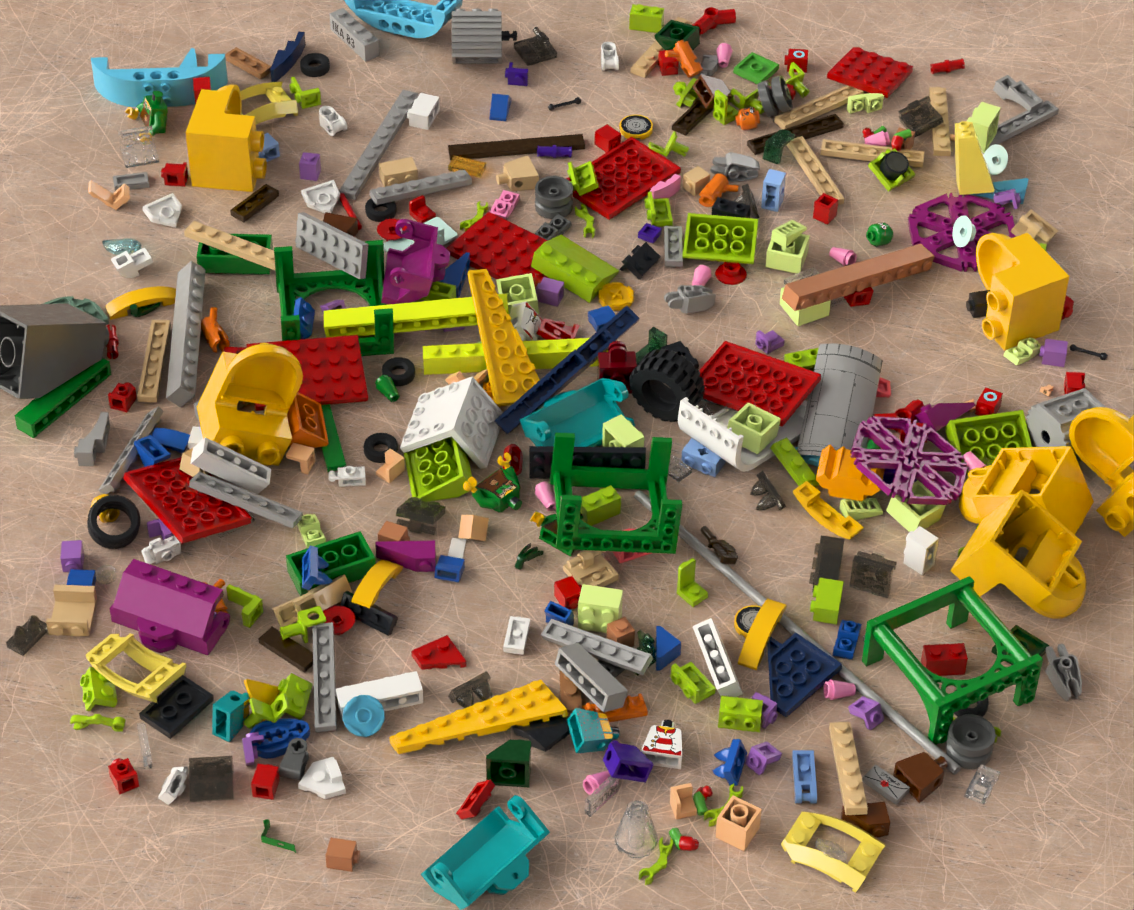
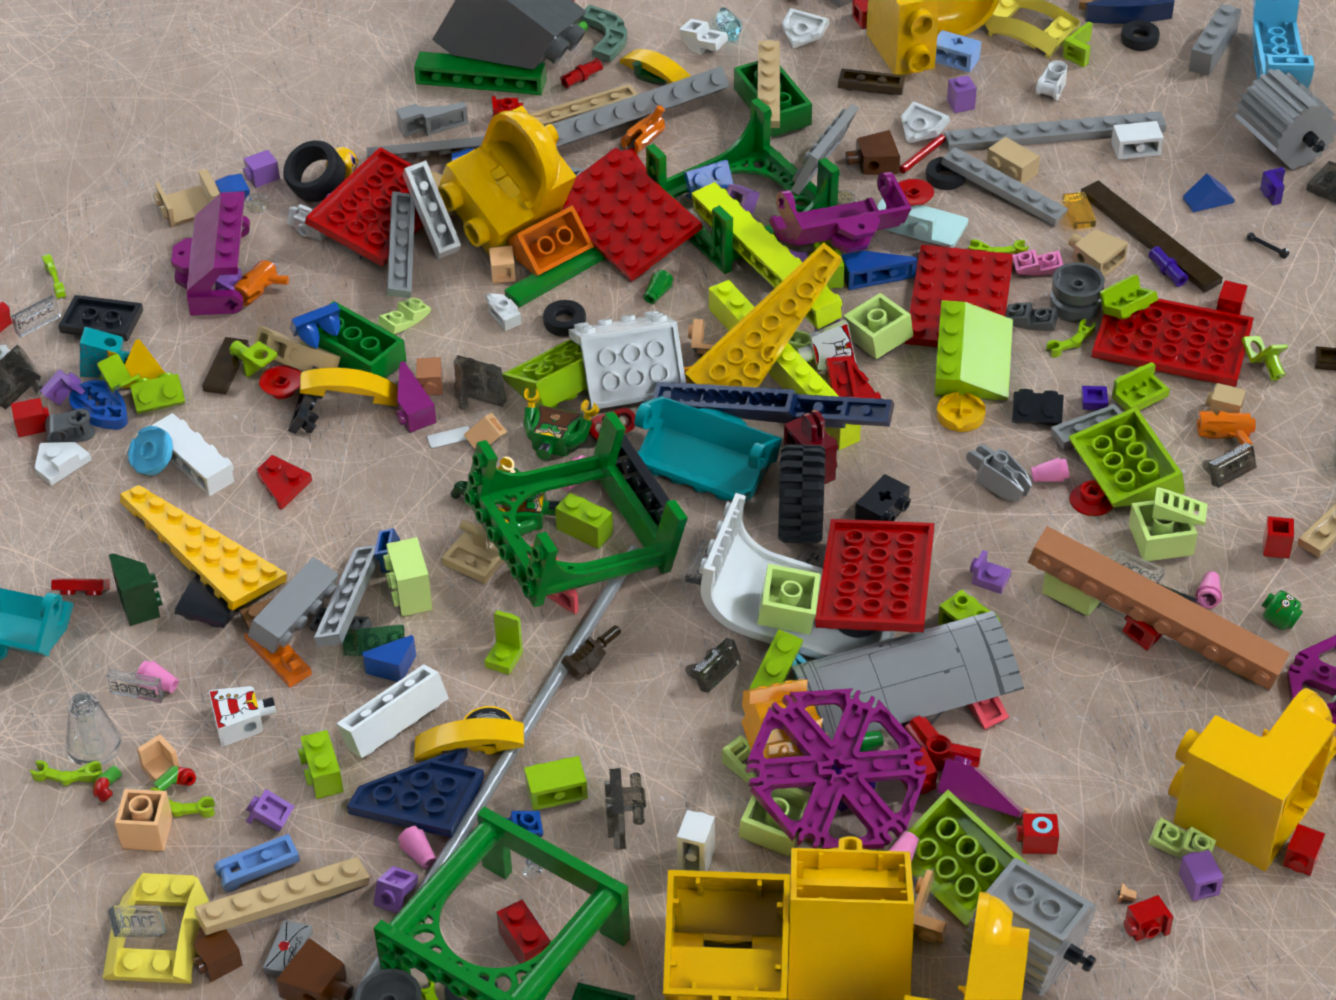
camera: 65 degrees right, 0 degrees up
(27, 635) = (142, 186): clear smoke tile -> none
(97, 690) = (98, 257): lime bracket -> none
(151, 451) = (435, 153): blue slope -> none
(162, 668) = (123, 287): light yellow wedge -> none
(251, 604) = (264, 316): lime bracket -> none
(324, 677) = (197, 398): light grey plate -> none
(393, 466) = (539, 338): light nougat panel -> none
(399, 363) = (692, 275): black tyre -> none
(420, 211) = (969, 201): red bracket -> none
(449, 568) = (412, 438): blue piece -> none
(478, 685) = (247, 524): clear smoke tile -> none
(516, 635) = (342, 528): white plate -> none
(550, 291) = (916, 352): medium lavender brick -> none
(567, 592) = (433, 544): red brick -> none
(590, 731) = (220, 639): teal torso -> none
(600, 317) = (909, 412): blue piece -> none
(621, 433) = (697, 496): yellowish green brick -> none
(621, 632) = (388, 610): nougat brick -> none
(627, 762) = (185, 682): dark purple torso -> none
(636, 127) = (1283, 318): tile -> none
(655, 341) = (871, 472): clear green bracket -> none
(667, 189) = (1186, 384): bright pink slope -> none
(692, 682) = (348, 697): lime bracket -> none
(730, 208) = (1190, 454): black brick -> none
(734, 758) = (242, 785): blue tile -> none
(736, 167) = (1284, 428): light grey hinge -> none
(768, 710) = (342, 792): medium lavender bracket -> none
(773, 190) = (1264, 473): light blue brick -> none
(824, 514) = (718, 731): yellow slope -> none
(828, 561) = (639, 756): clear smoke brick -> none
(1103, 356) = (1249, 938): black hinge -> none

